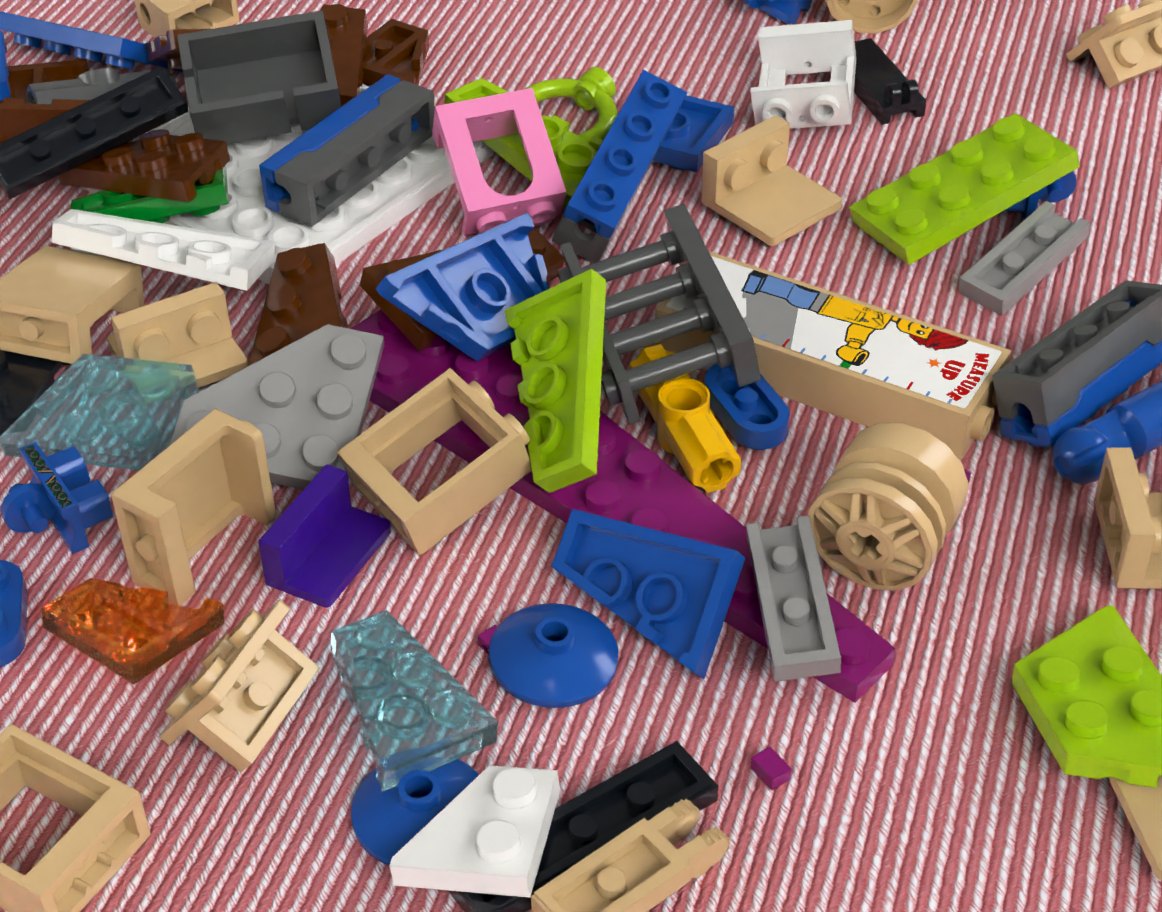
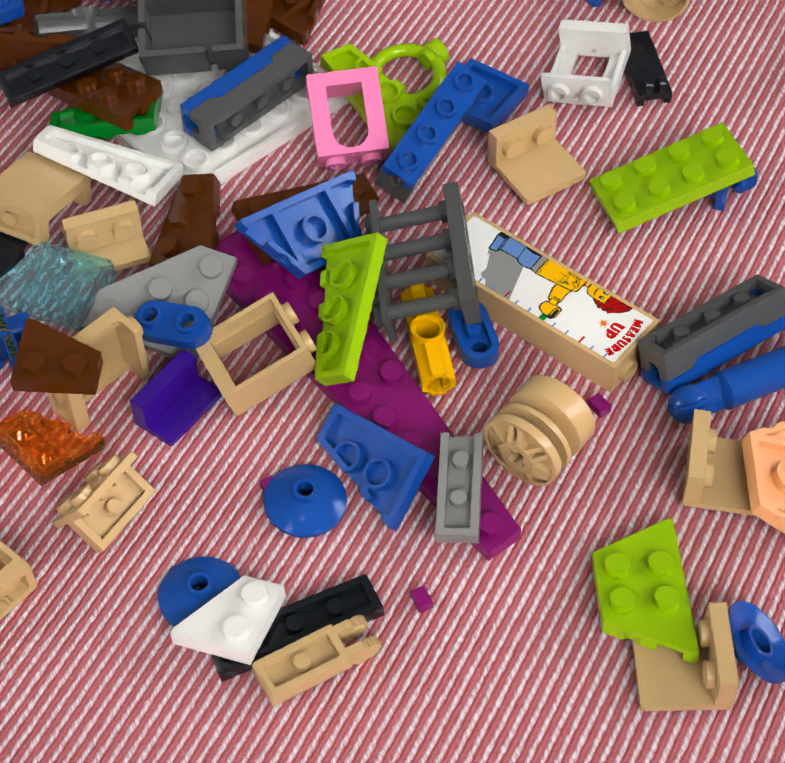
camera: 10 degrees right, 10 degrees up
(138, 488) = (54, 362): none -> reddish brown wing
(303, 434) = (170, 322): none -> blue plate
(406, 700) = (204, 521): clear light blue wing -> none
(1022, 259) = (700, 239): light grey hinge -> none

